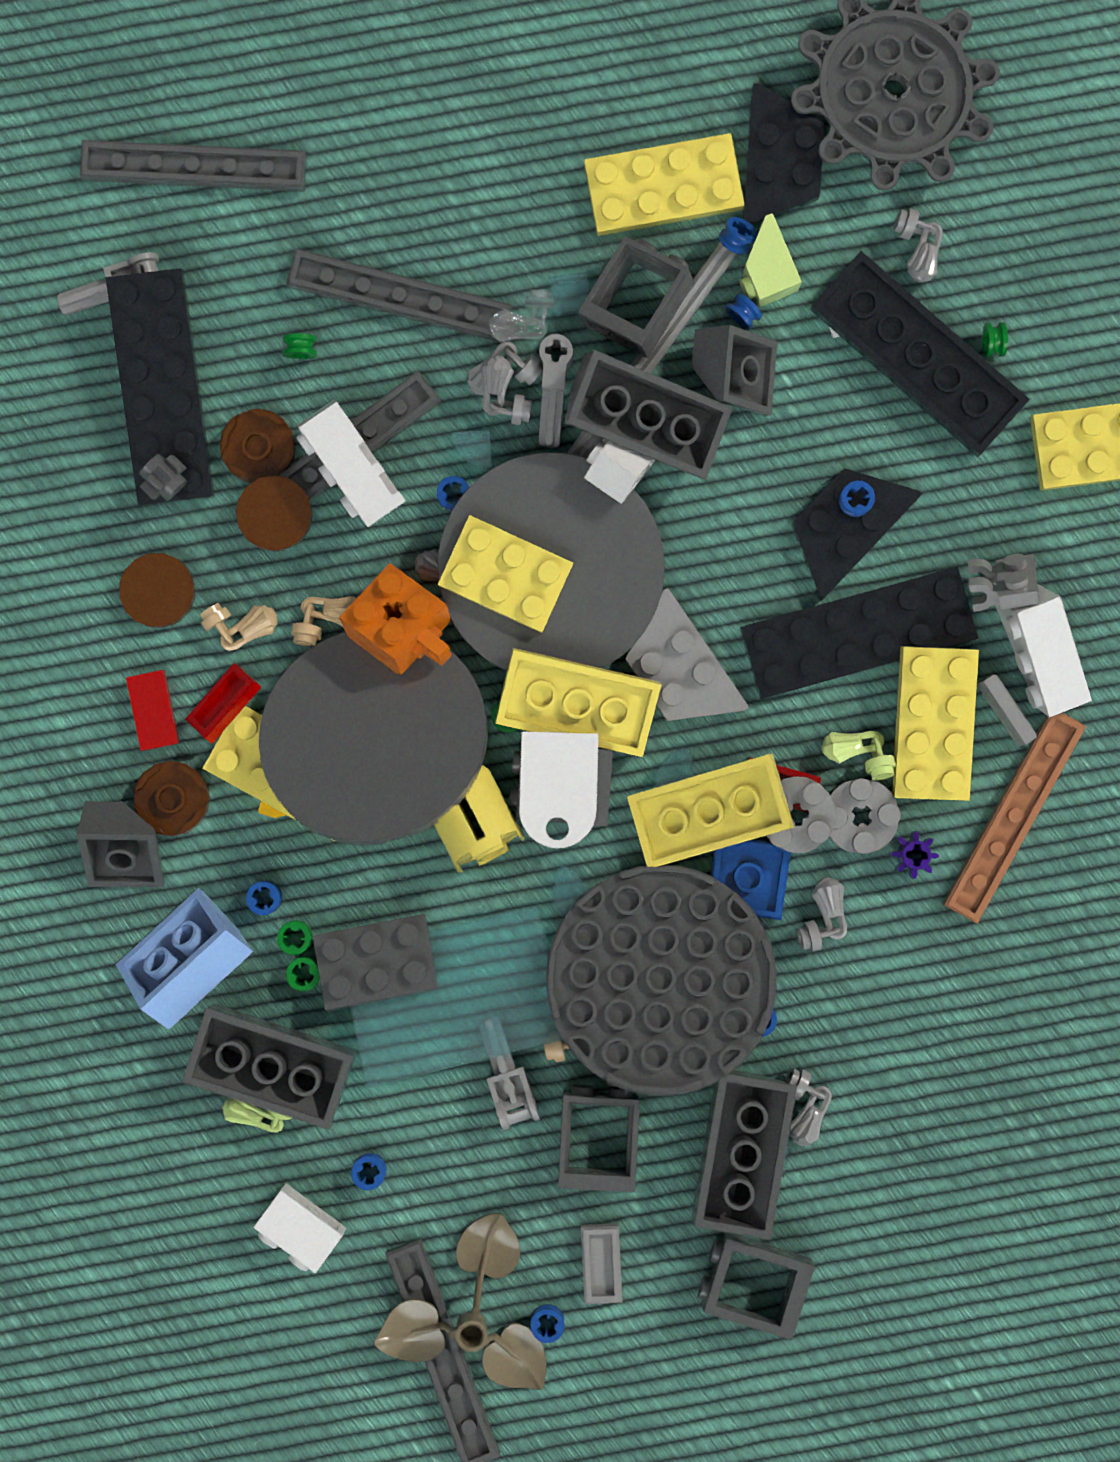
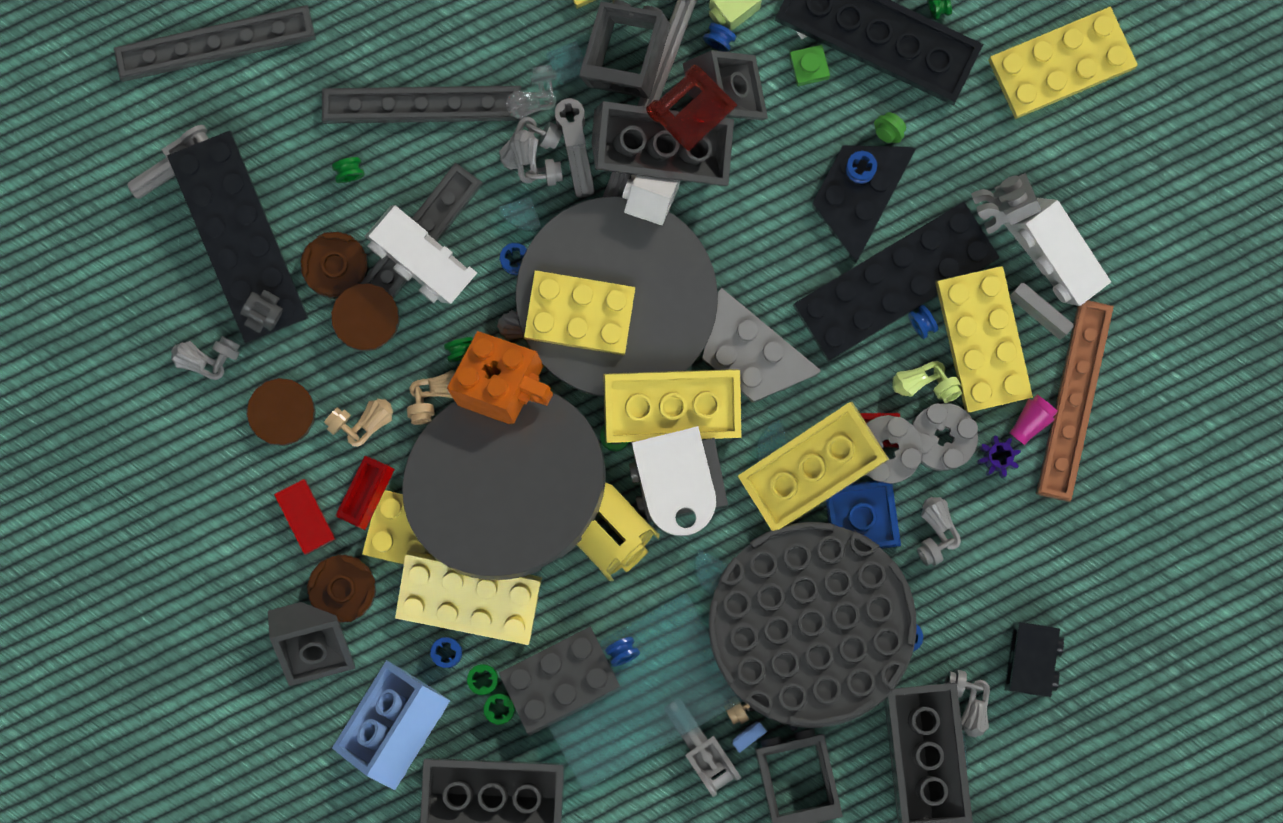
camera: 15 degrees left, 5 degrees down
(74, 504) = (189, 357): none -> light grey piece
(278, 843) = (453, 601): none -> light yellow plate
(364, 575) = (457, 348): none -> green bush
(450, 951) = (622, 651): none -> blue bush
(559, 1077) = (748, 736): none -> medium blue tile
(697, 393) = (699, 115): none -> clear red plate
(833, 369) = (809, 65): none -> bright green plate
(875, 686) = (923, 322): none -> blue bush
(887, 1082) = (1034, 659): none -> black brick
(901, 463) = (890, 128): none -> bright green plate
(962, 824) = (1034, 418): none -> dark pink cone

